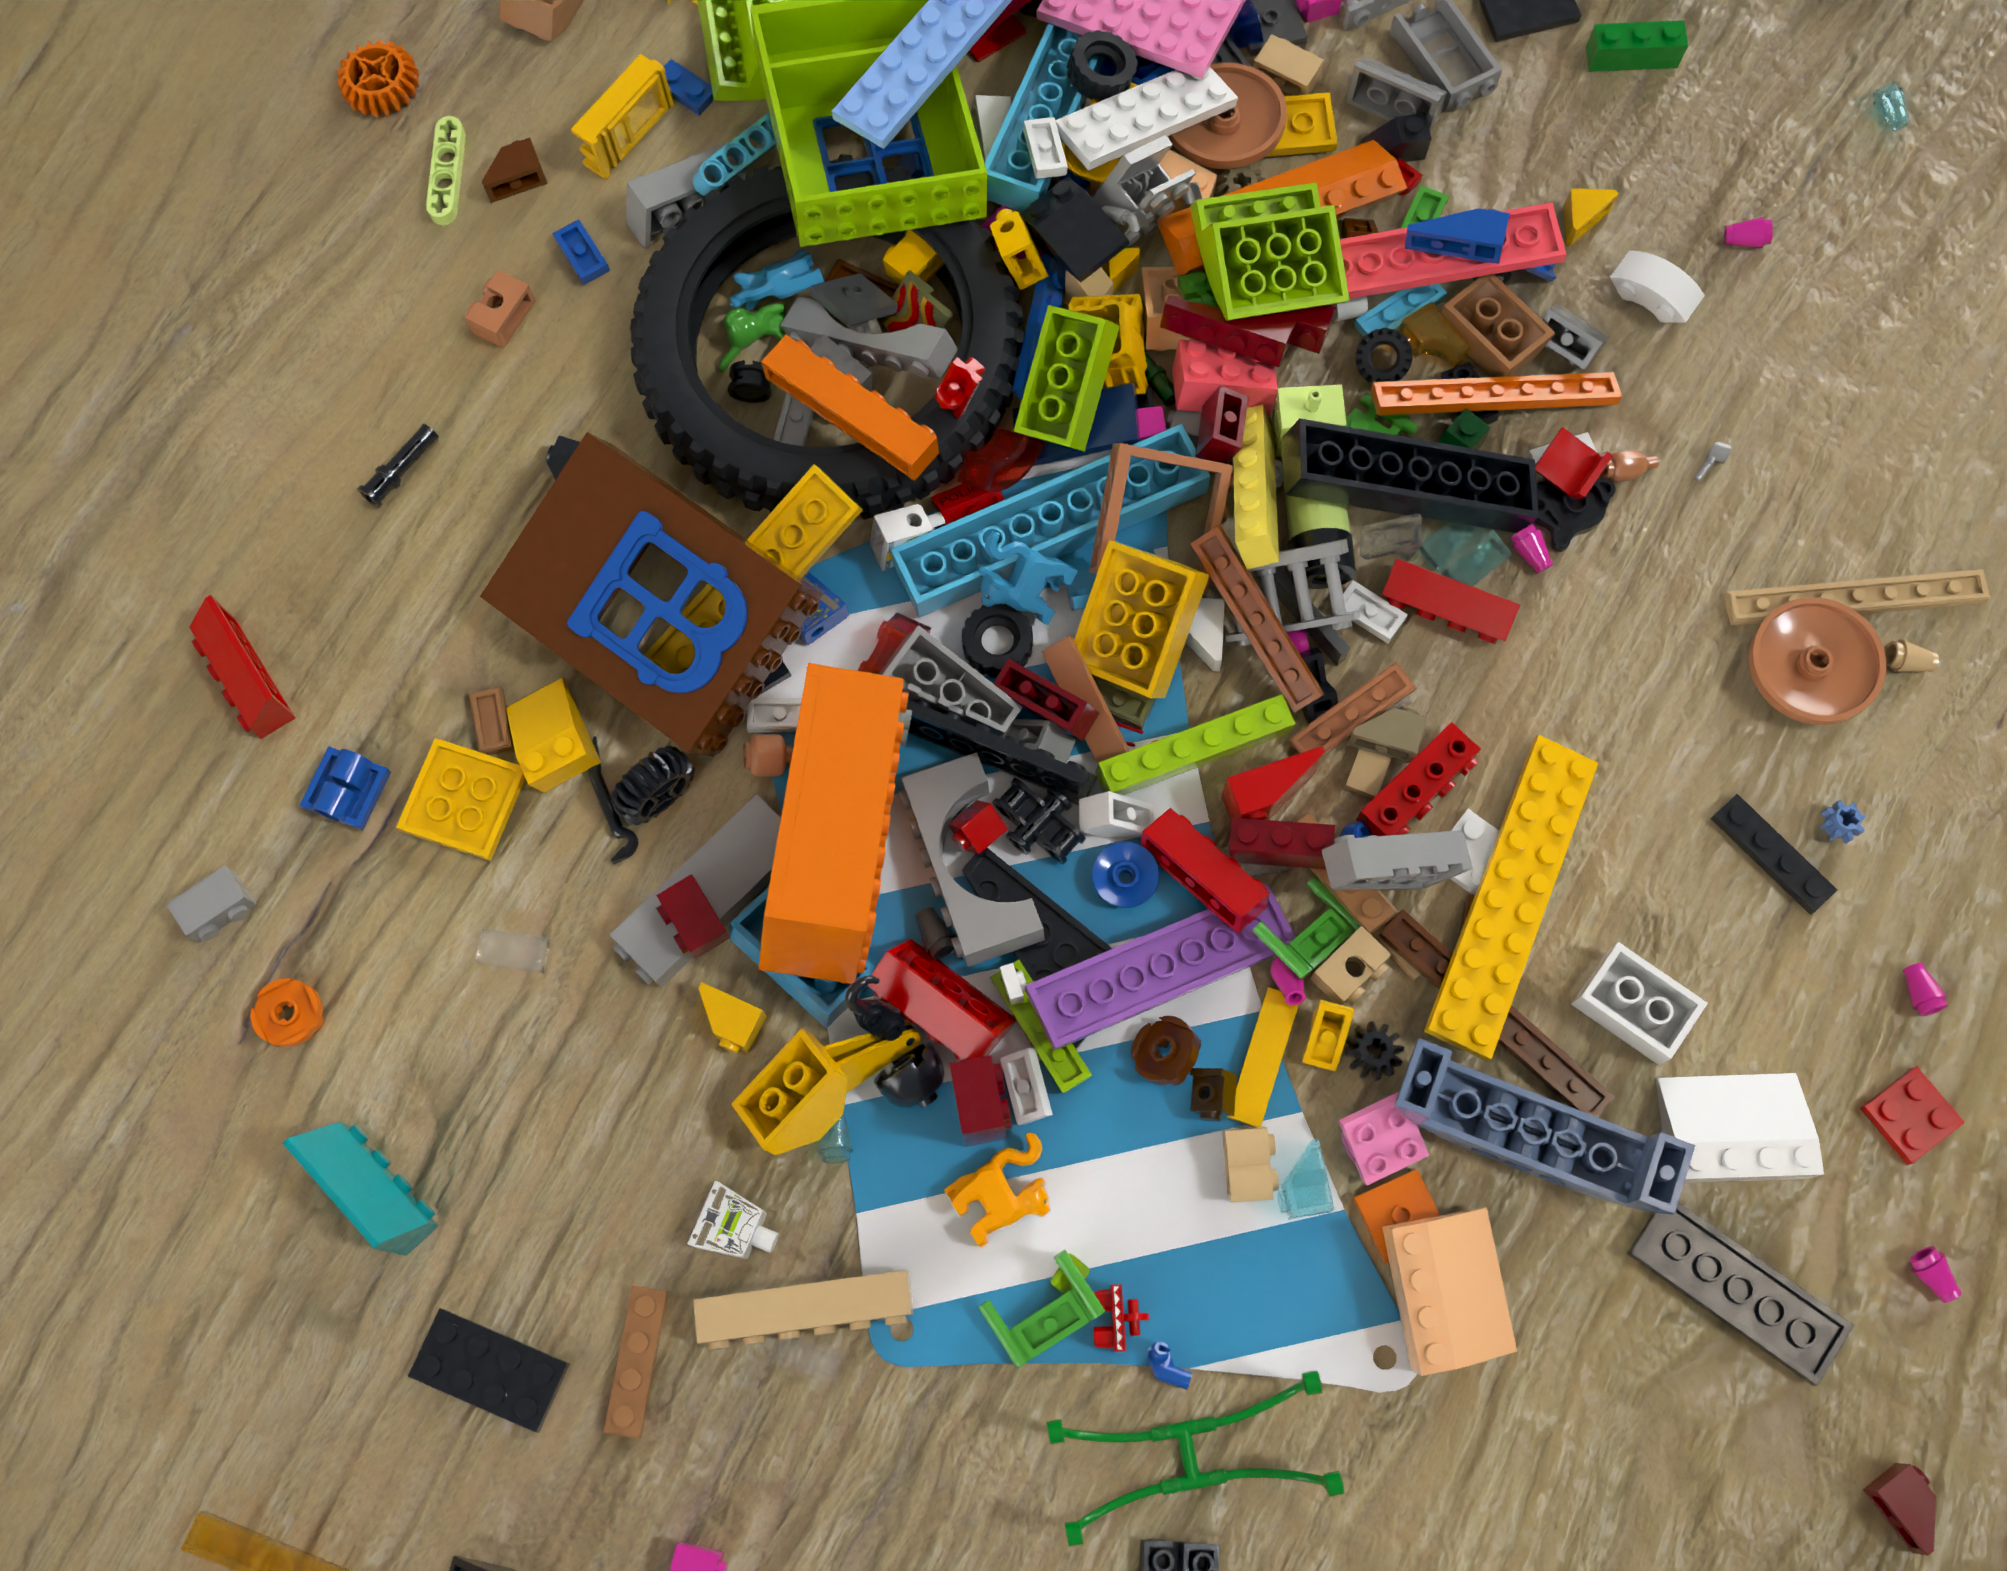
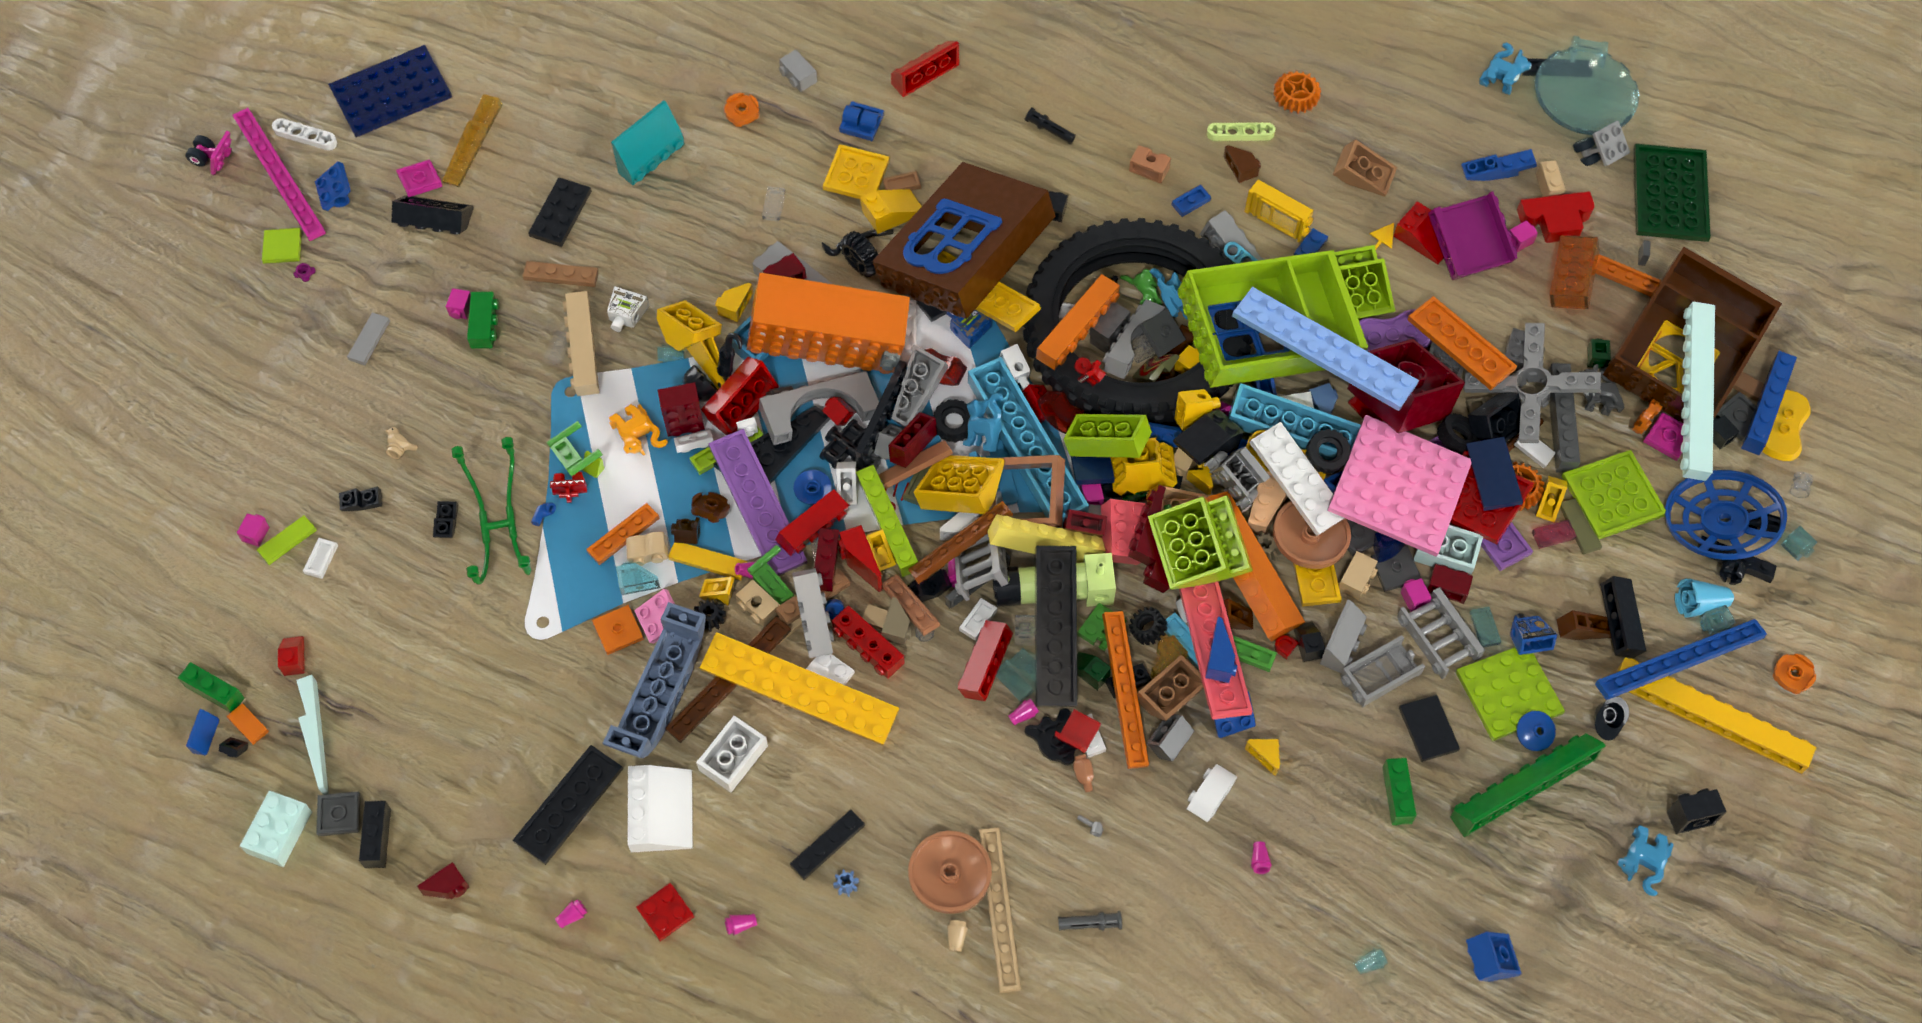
camera: 85 degrees right, 10 degrees down
(737, 1514) = (482, 320): none -> green brick
(988, 81) = (1324, 398): none -> medium blue slope
(1045, 147) = (1259, 416): white plate -> none
(1214, 1212) = (616, 538): none -> orange plate
(1249, 756) = (881, 549): none -> yellow slope
(1449, 1291) = (574, 647): light nougat slope -> none
(1867, 453) = (1100, 921): none -> dark grey pin

